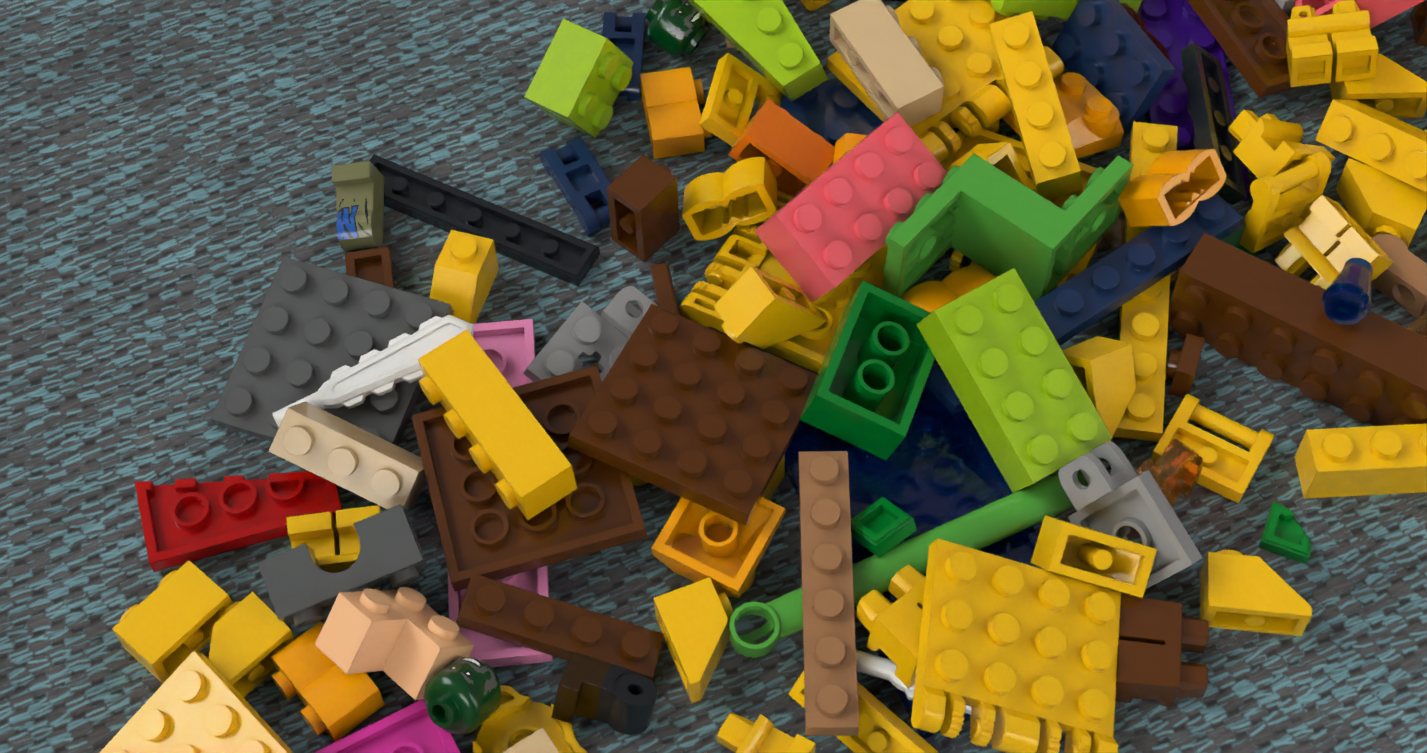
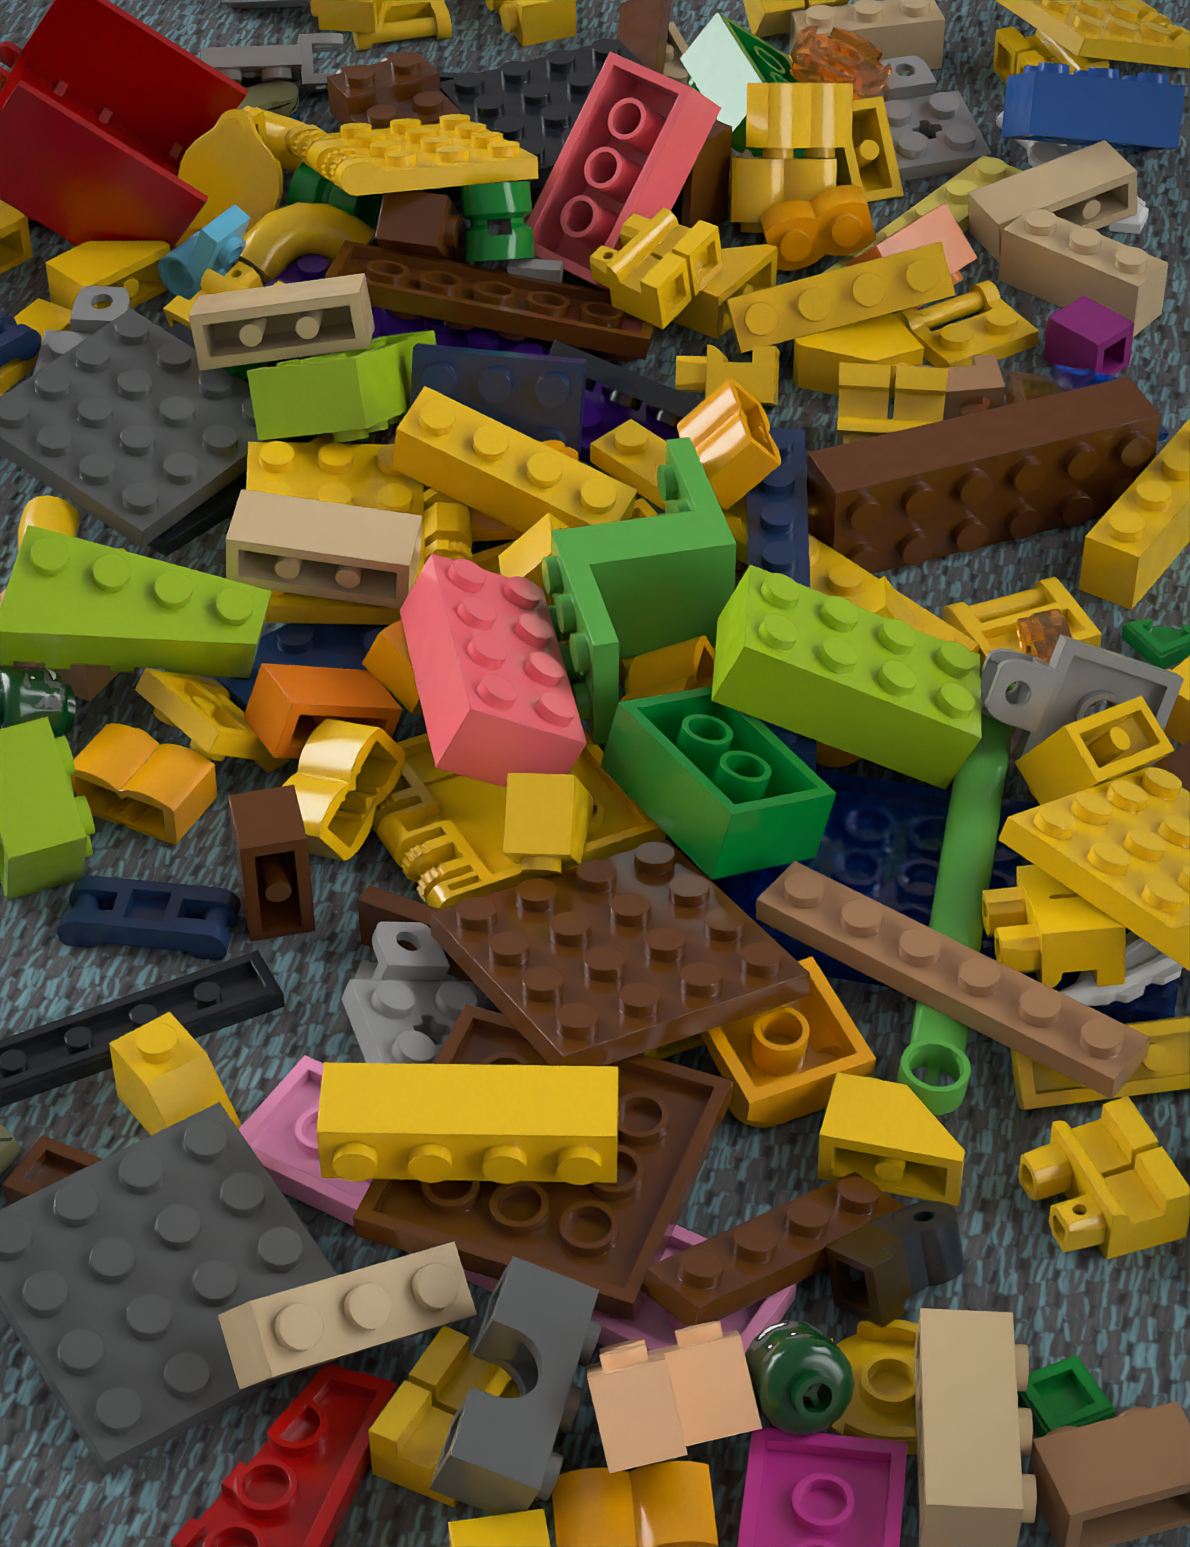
camera: 55 degrees left, 15 degrees down
(383, 369) = (258, 1181): white sword -> none
(882, 527) = (908, 891): green tile -> none
(1183, 365) = (915, 579): reddish brown plate -> none
(1280, 208) = (800, 391): yellow plate -> none
(1349, 295) = (991, 394): clear blue cone -> none

